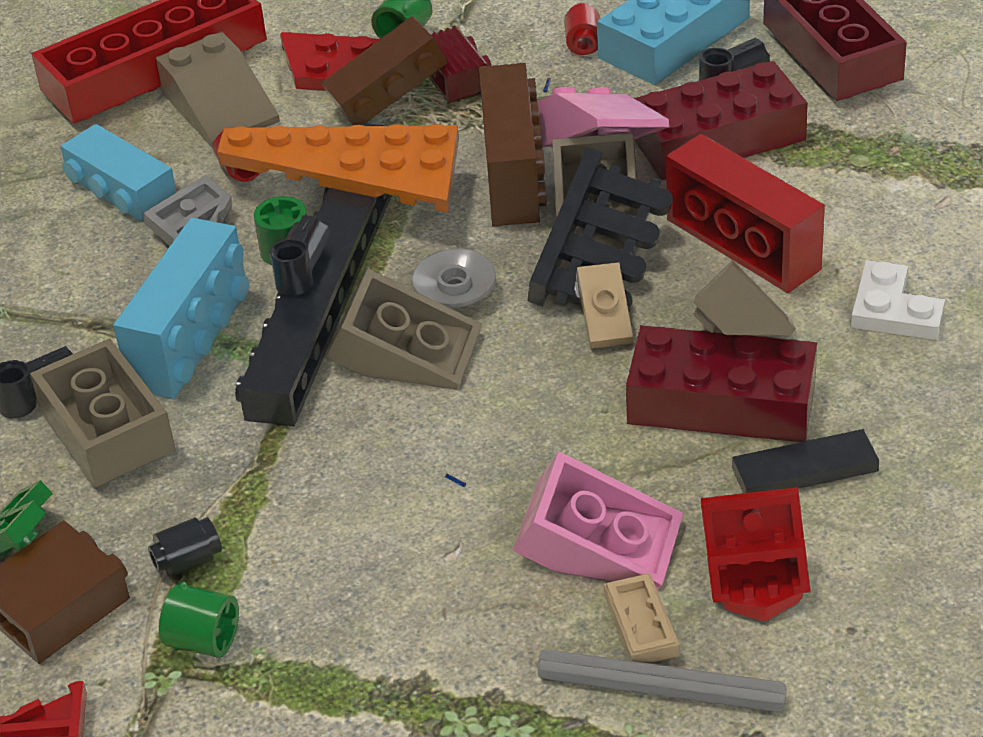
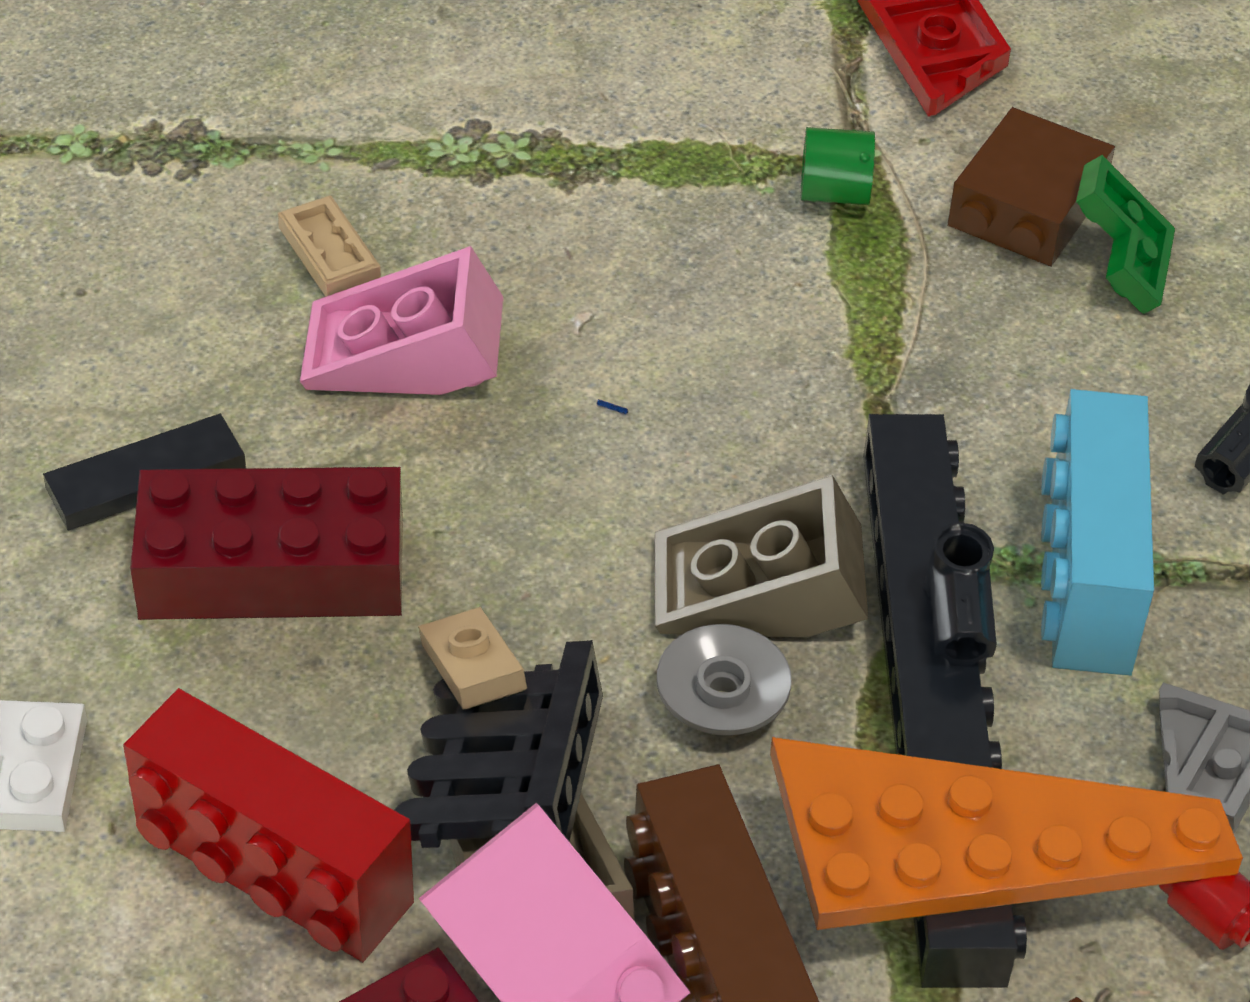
camera: 160 degrees right, 5 degrees up
(103, 412) = (1108, 346): dark tan brick -> none
(184, 546) = (905, 252): black brick -> none
(274, 221) = (1041, 721): green piece -> none
(662, 680) = (277, 195): light grey axle -> none
(739, 306) = (245, 597): dark tan slope -> none
(756, 552) = (199, 319): red piece -> none

